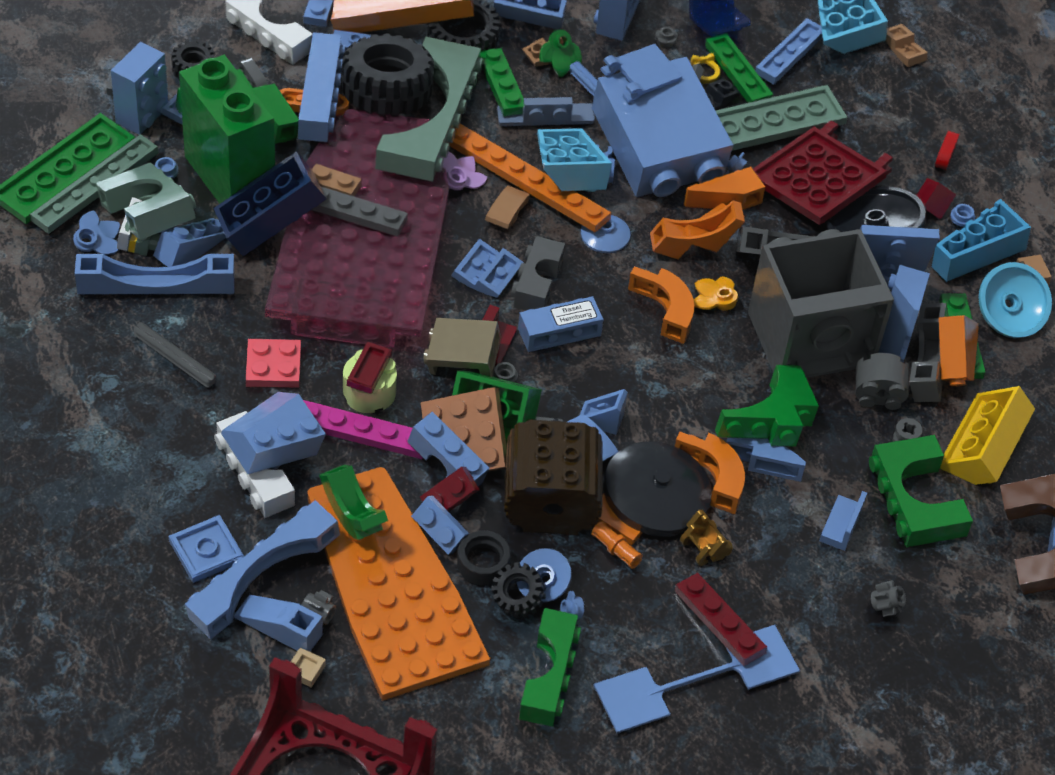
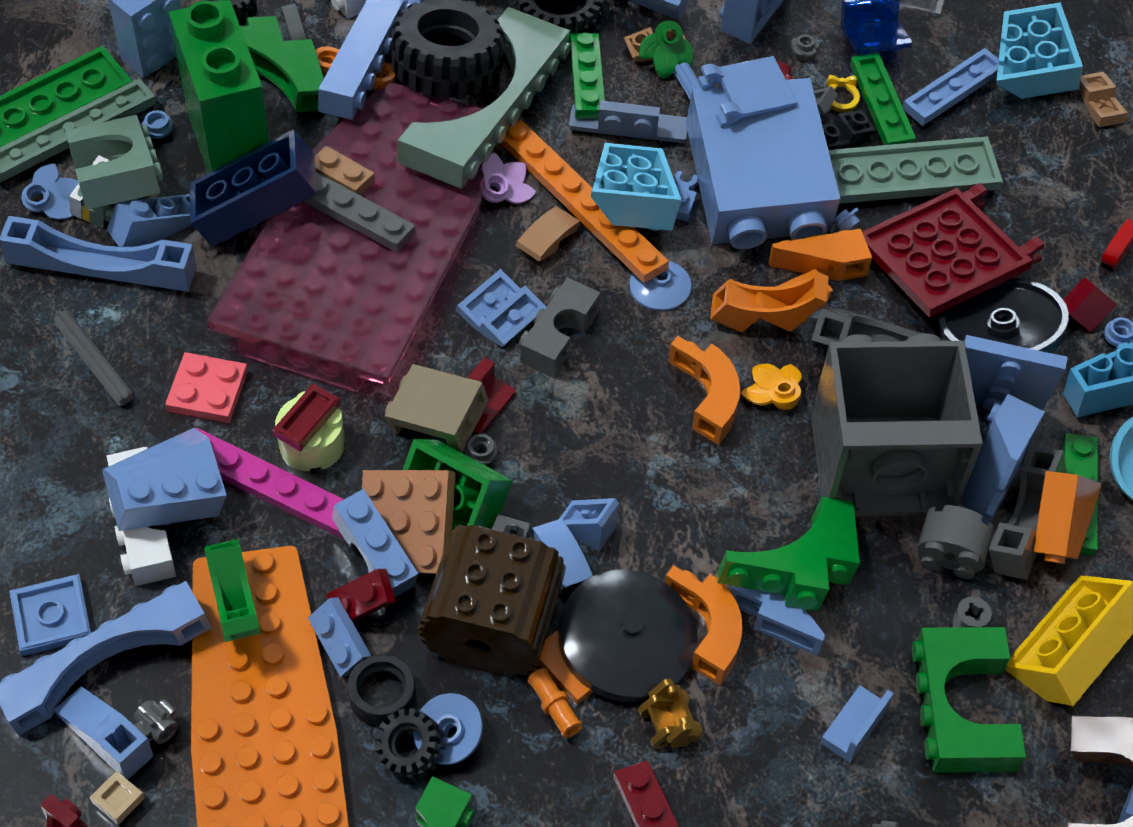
camera: 15 degrees right, 5 degrees up
(560, 324) = (568, 395): medium blue brick -> none
(573, 605) = (472, 778): medium blue plate -> none

